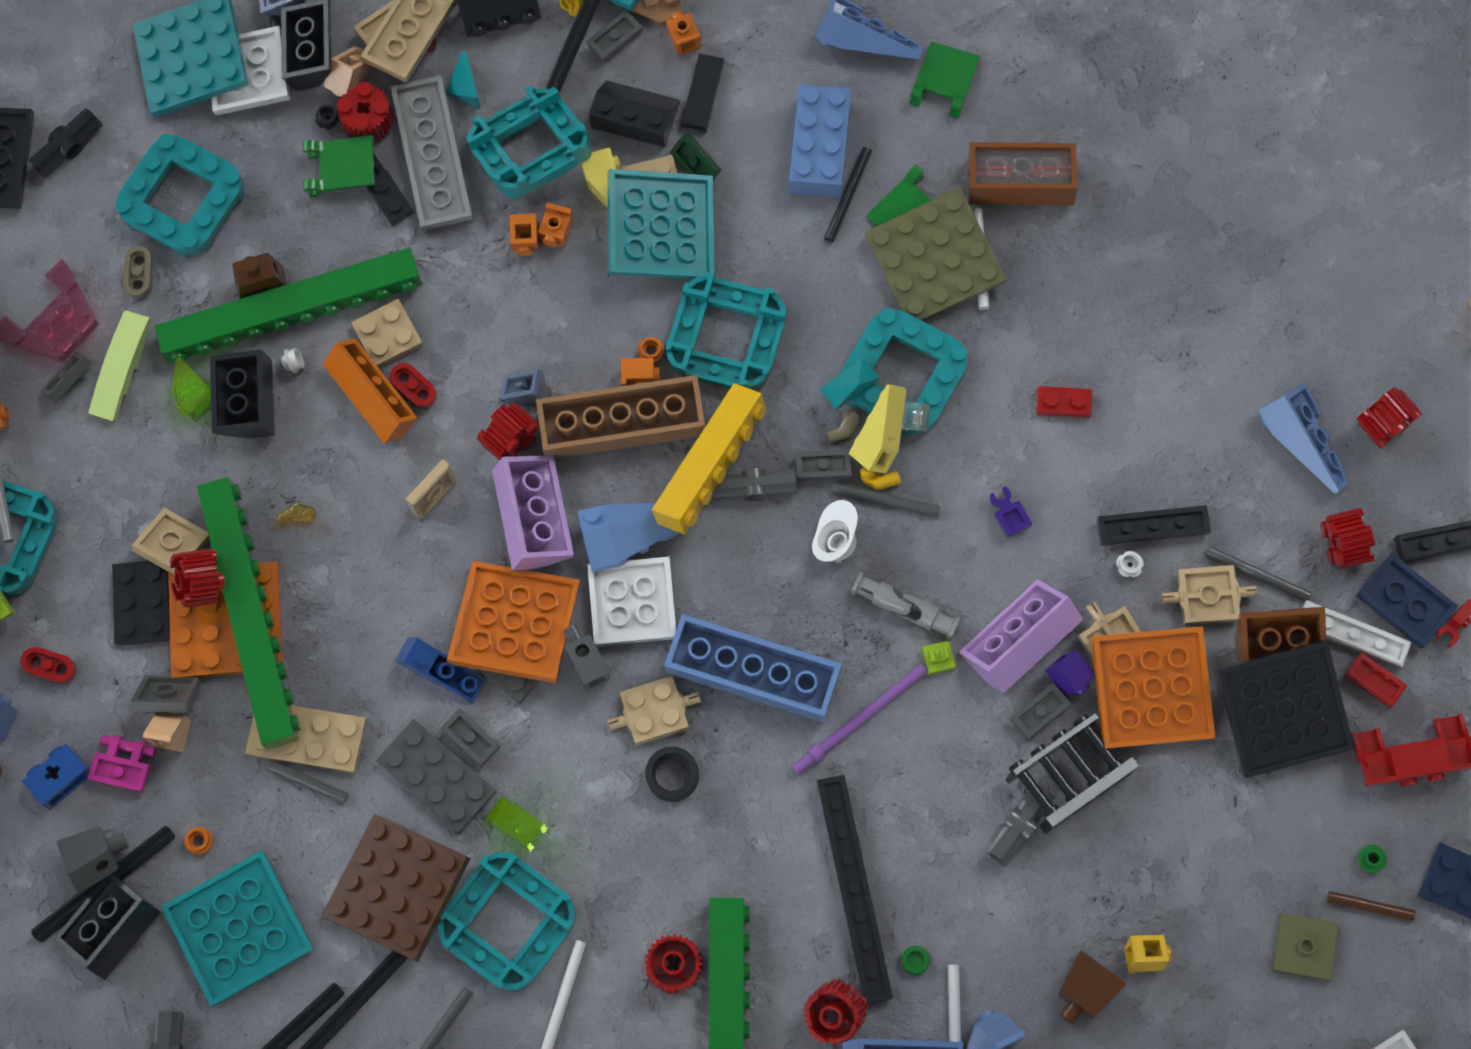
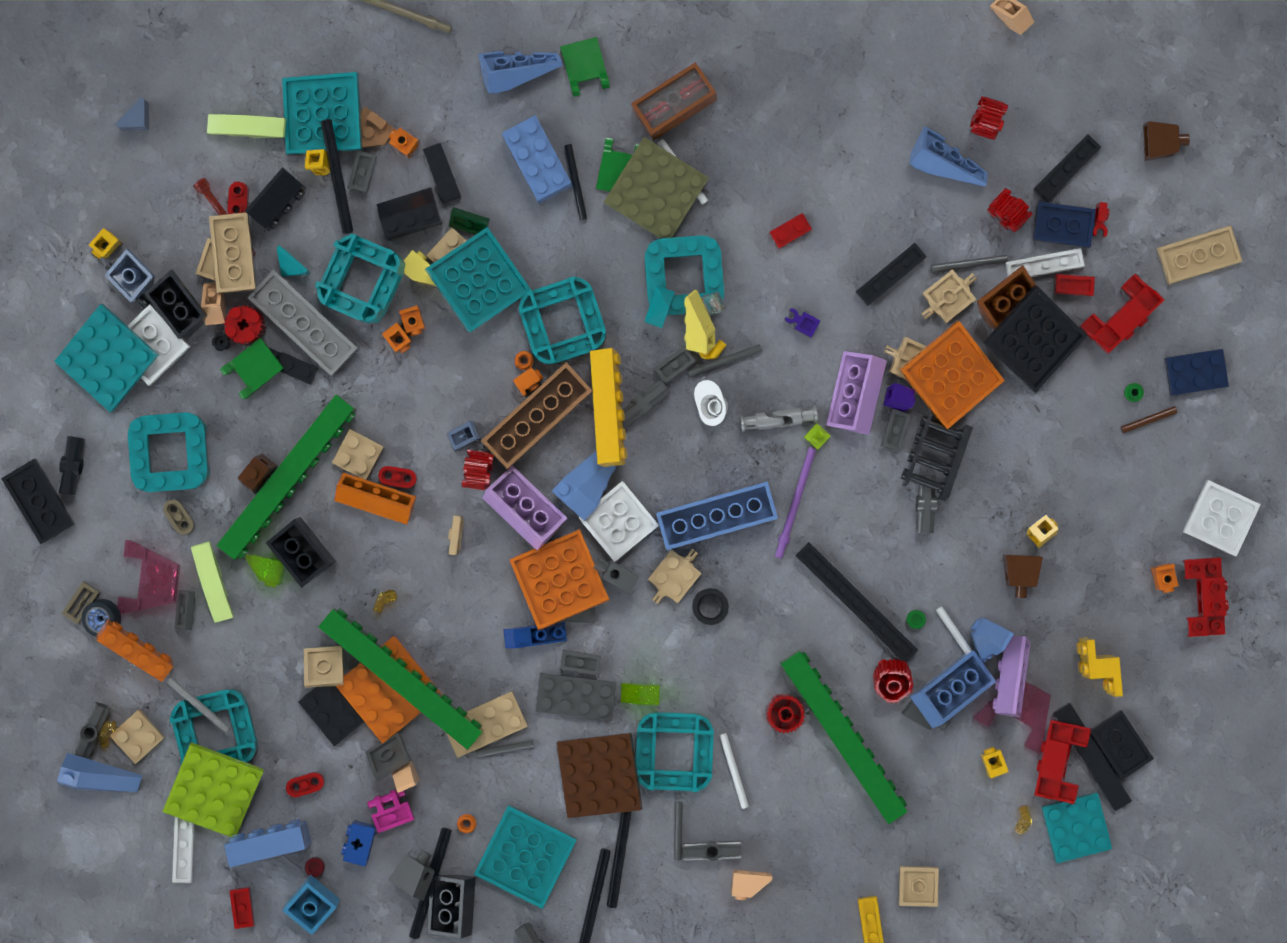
camera: 40 degrees left, 15 degrees up
(196, 578) = (359, 681): red brick -> none
(292, 360) = (313, 509): white plate -> none
(847, 427) = (673, 332): dark tan arm -> none
(1132, 557) = (896, 307): white plate -> none
(1305, 946) = (1126, 467): olive plate -> none

